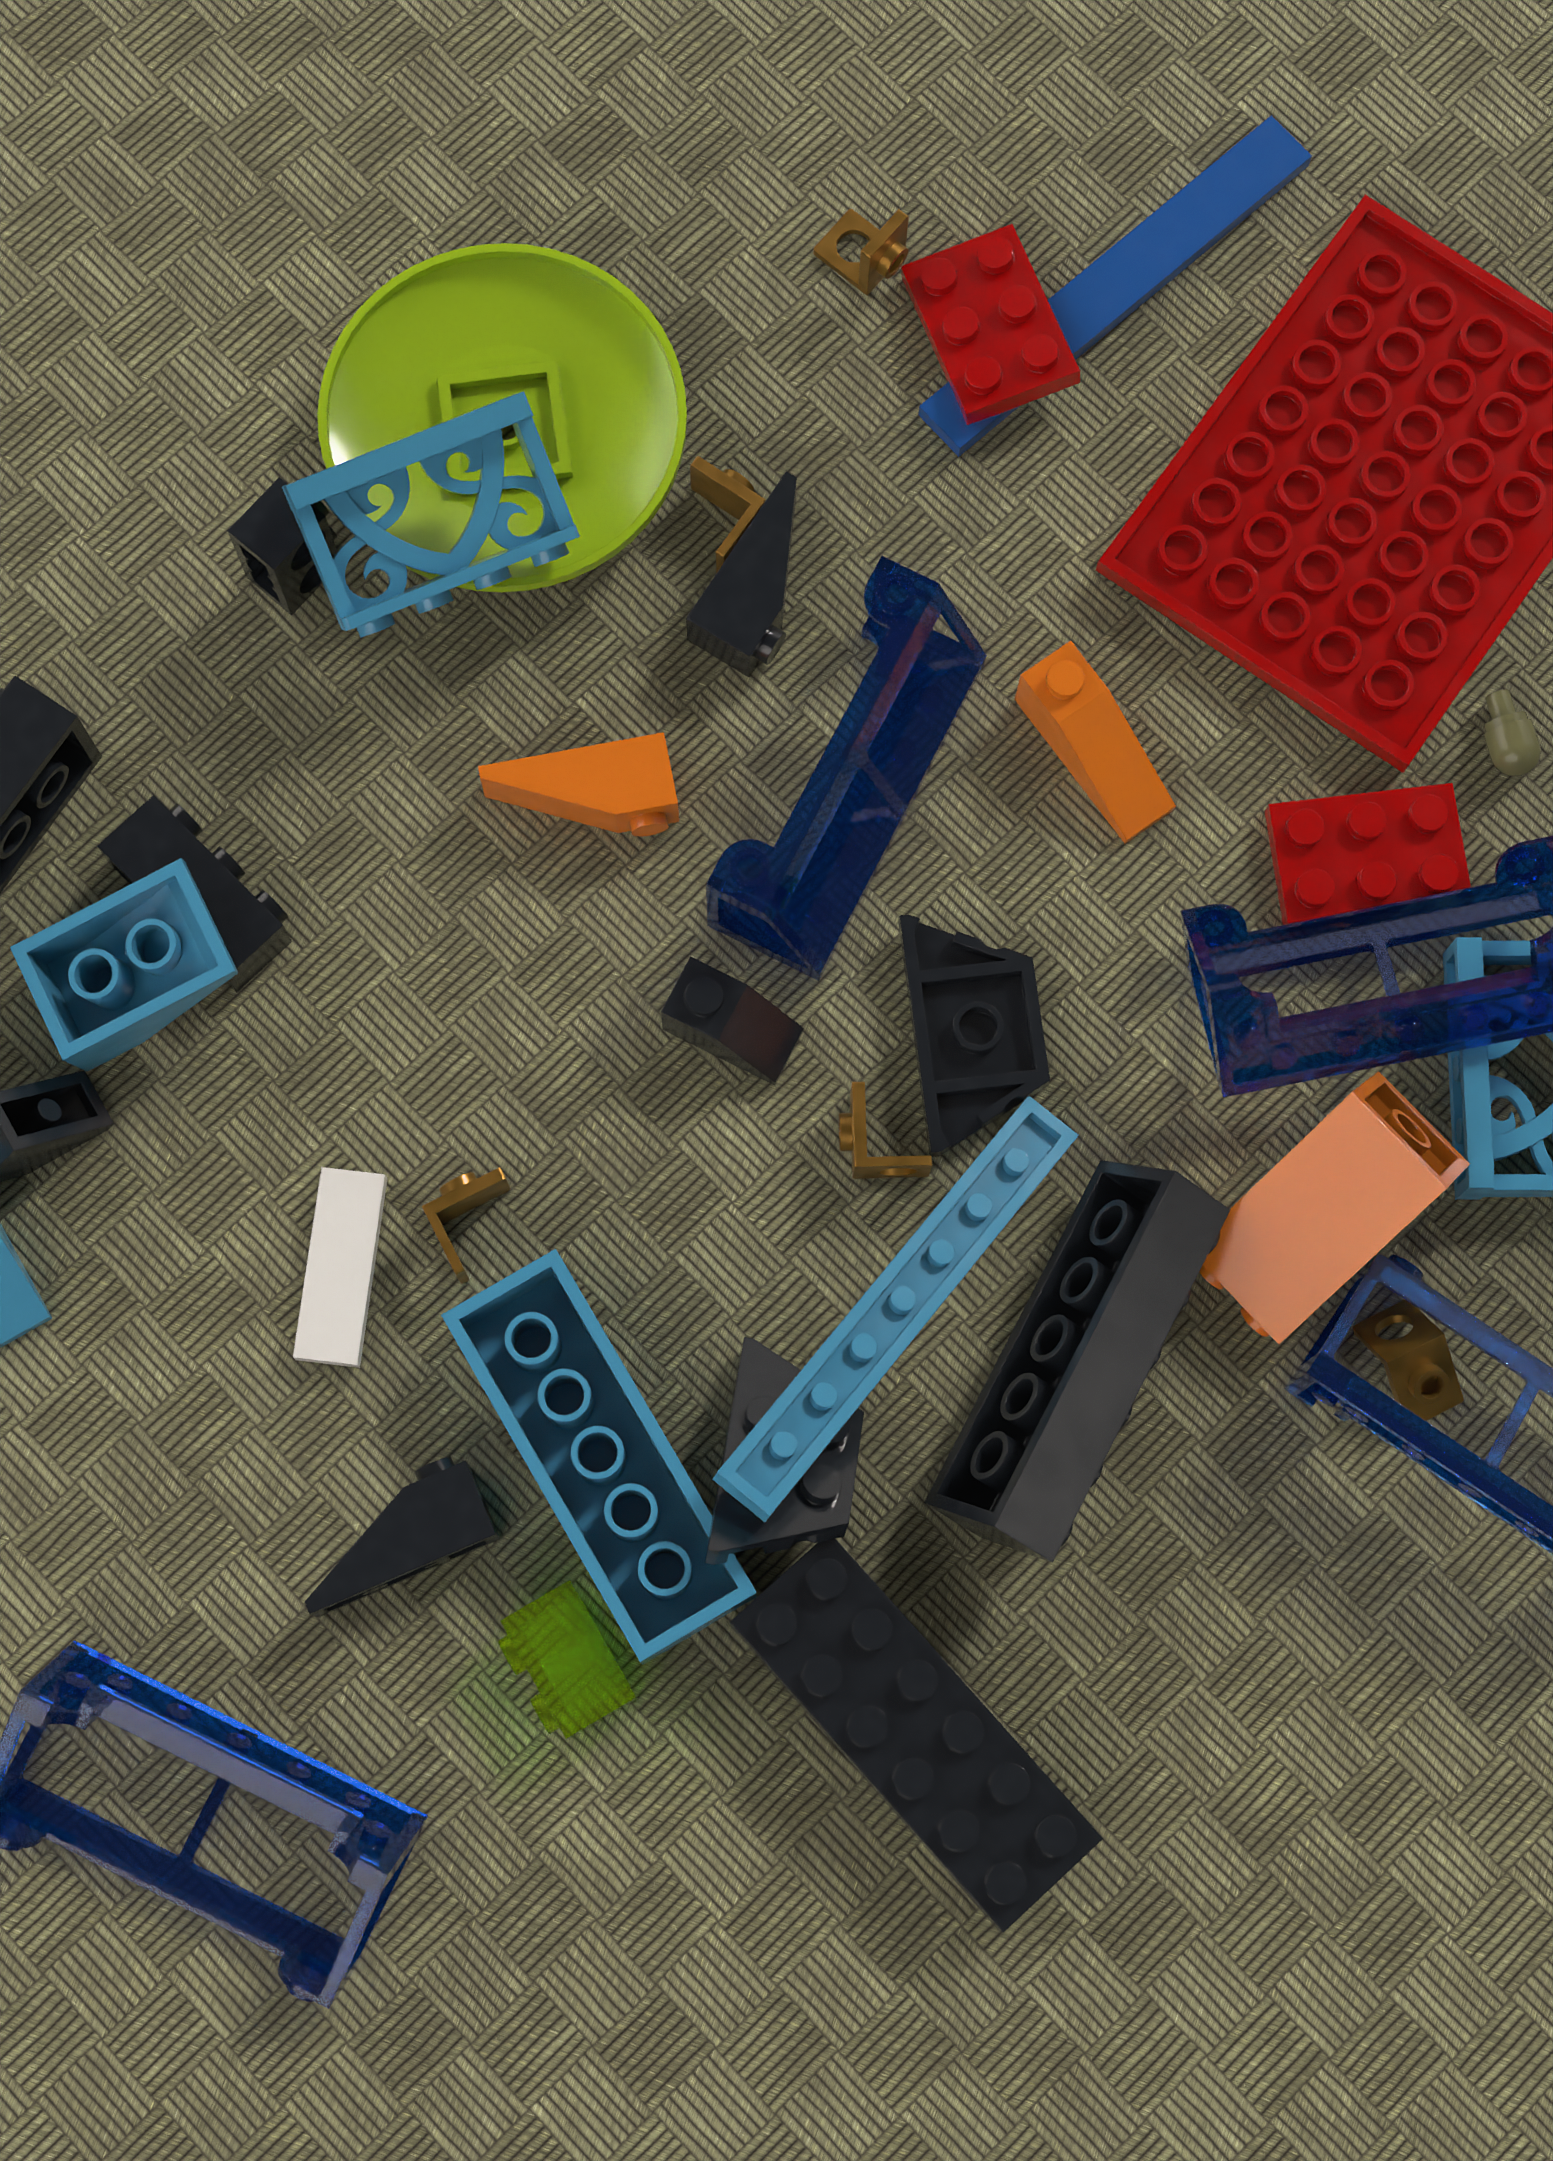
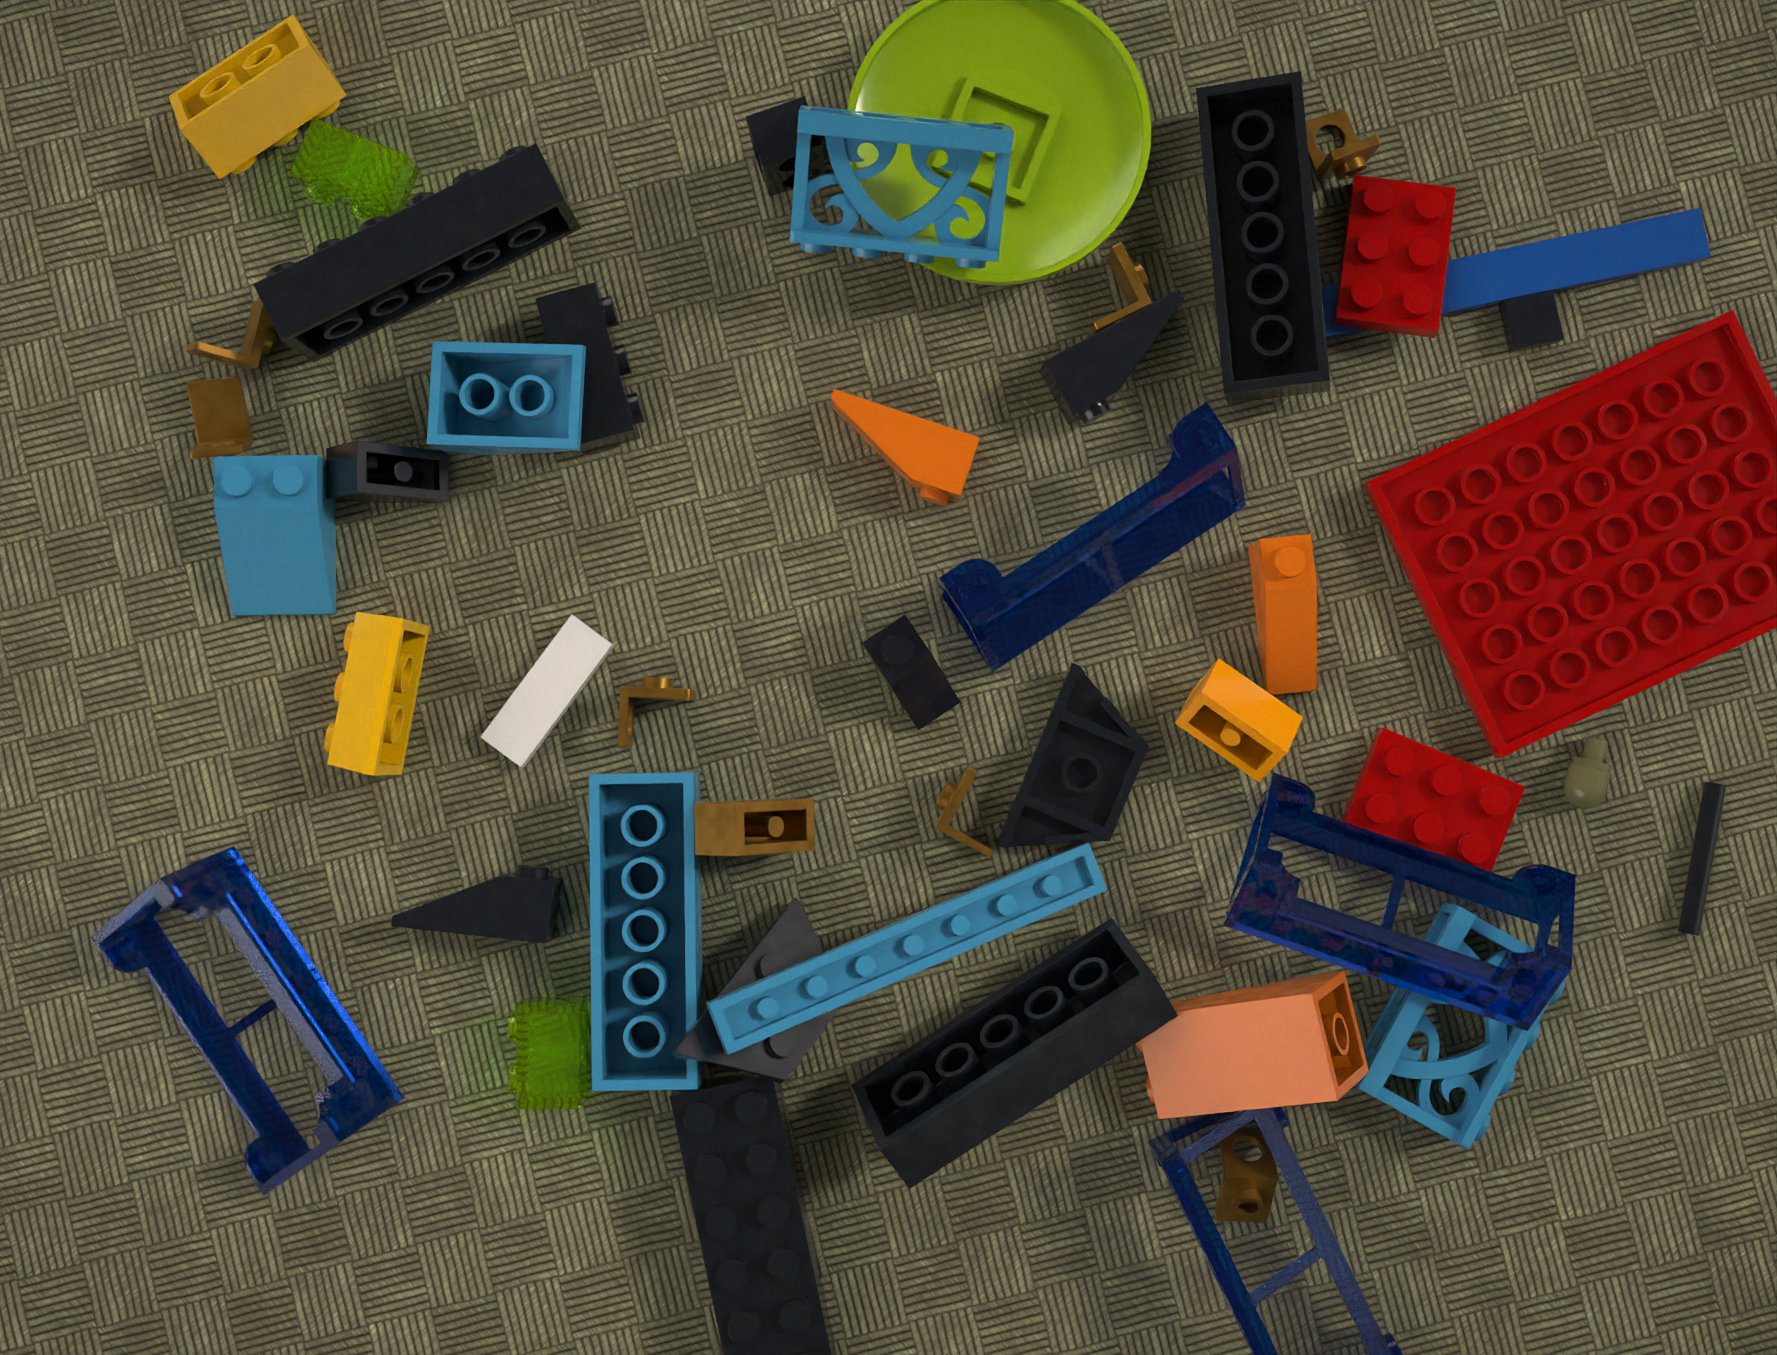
camera: 35 degrees right, 10 degrees up
(148, 1369) = (376, 694): none -> yellow slope
(655, 1273) = (754, 827): none -> pearl gold brick
(845, 376) = (1263, 238): none -> black brick
(1111, 876) = (1239, 720): none -> light orange brick
(1169, 315) = (1530, 321): none -> black tile

